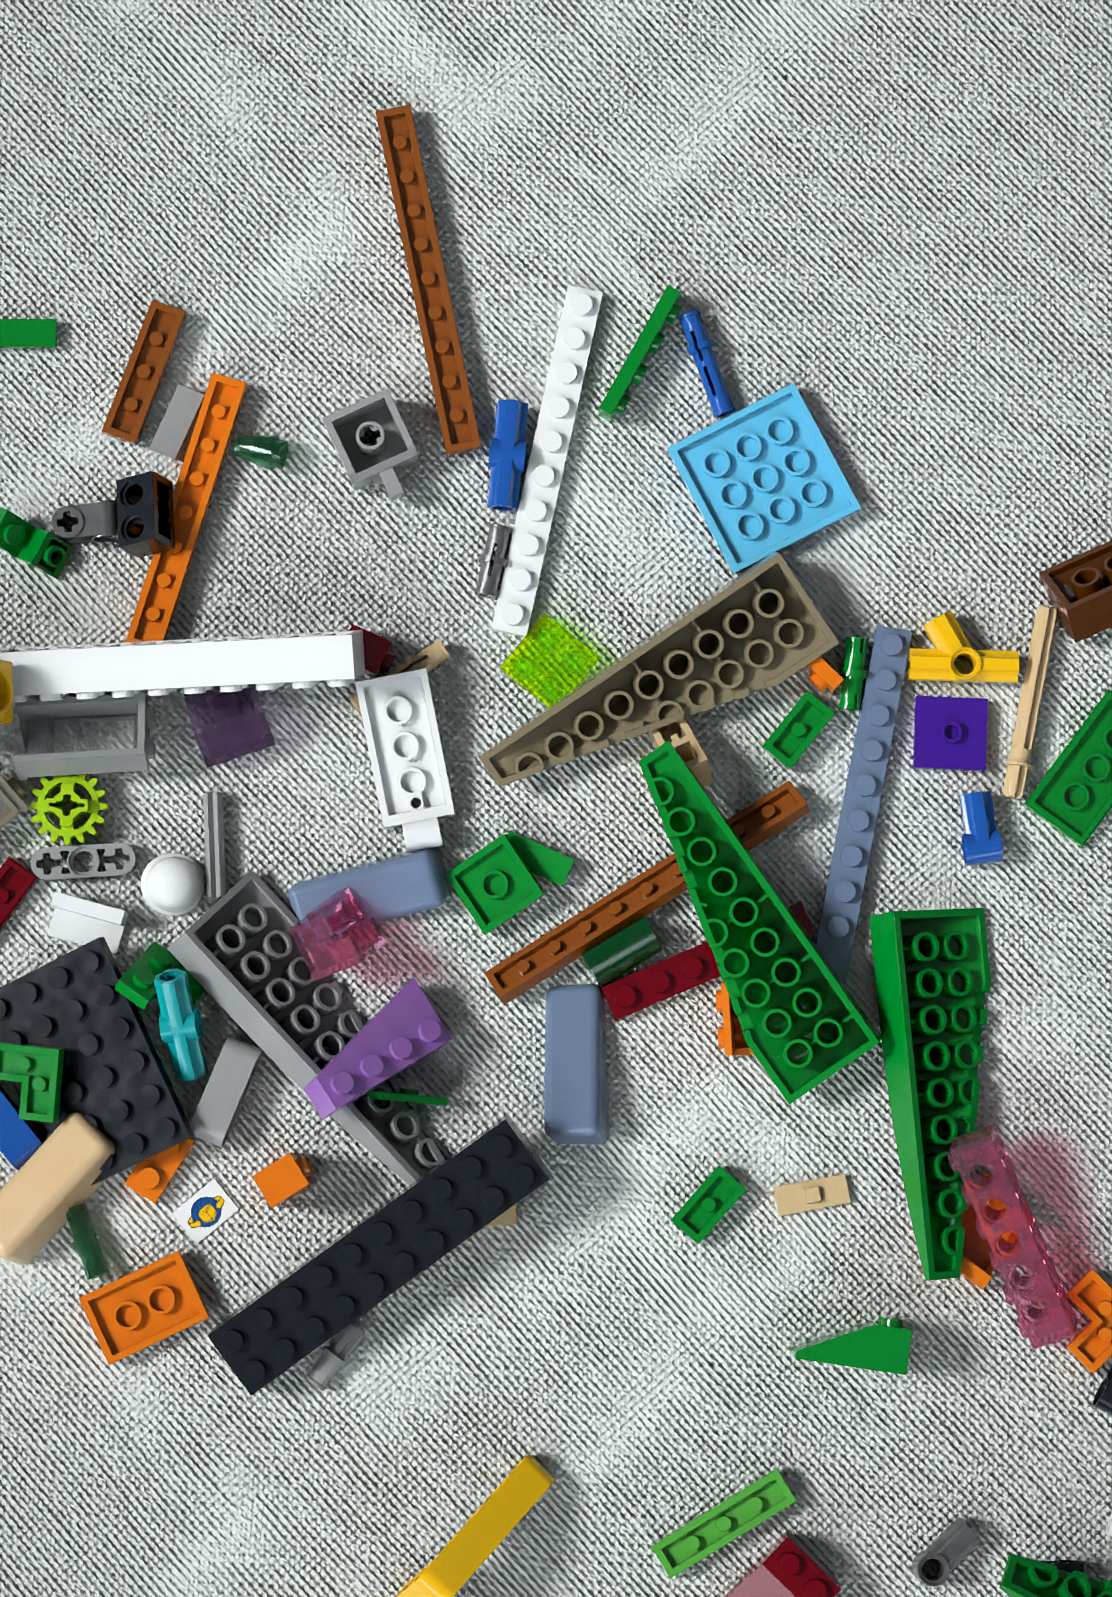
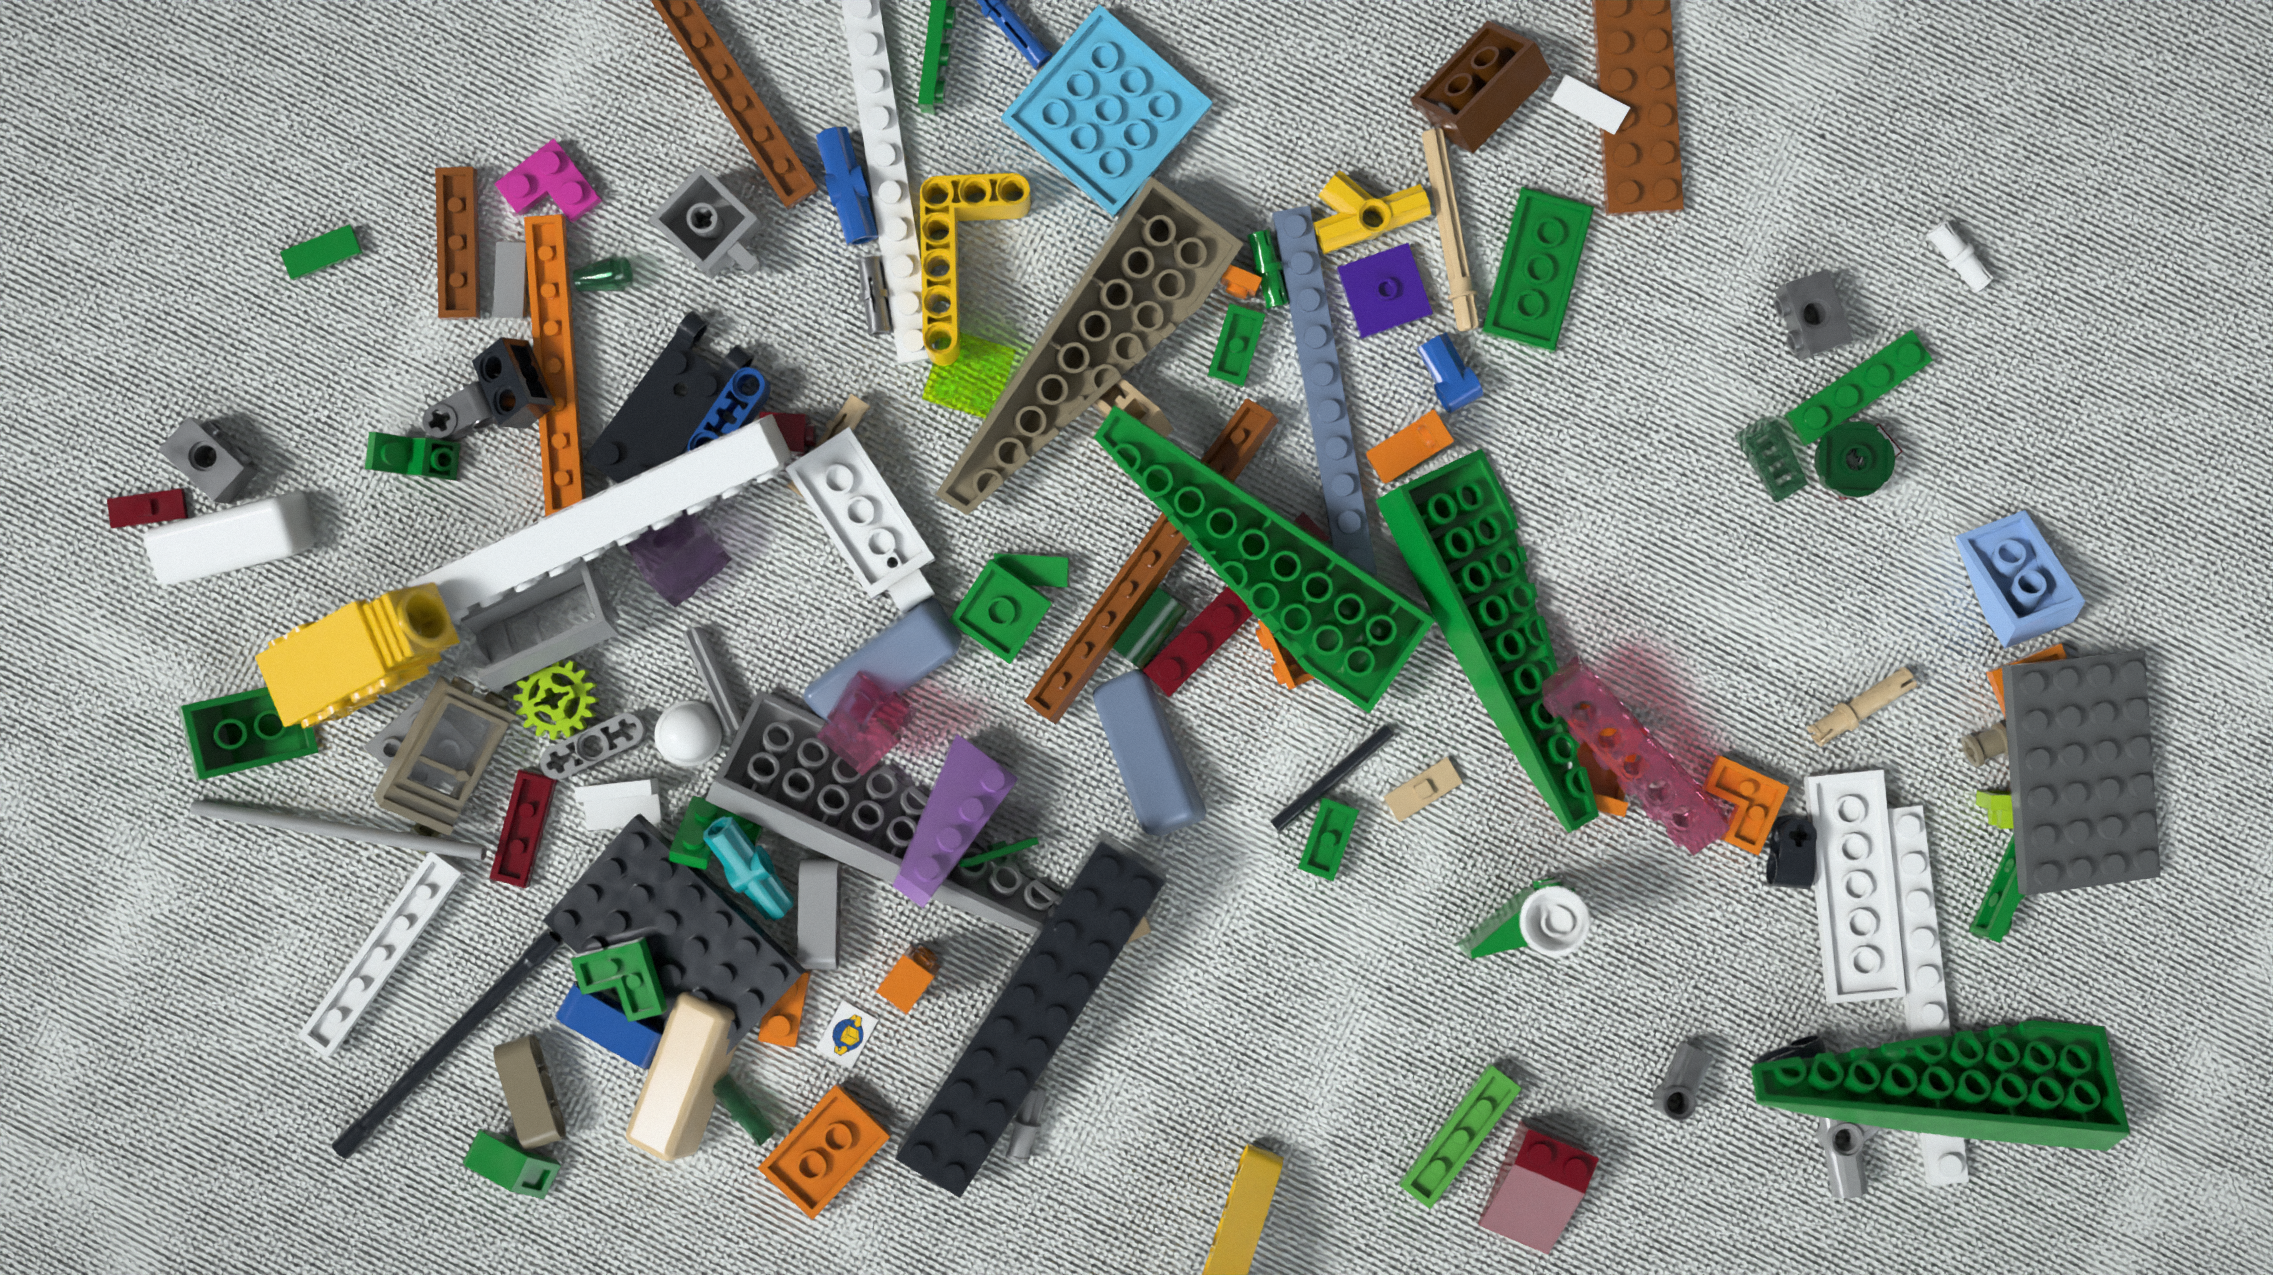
camera: 25 degrees left, 5 degrees up
(245, 341) = (546, 174): none -> dark pink plate
(254, 596) = (655, 421): none -> black hinge
(324, 605) = (725, 404): none -> blue beam
(572, 547) = (945, 251): none -> yellow beam
(733, 1152) = (1332, 778): none -> black piece
(880, 1349) = (1554, 921): none -> white helmet
(917, 881) = (1409, 447): none -> orange bracket

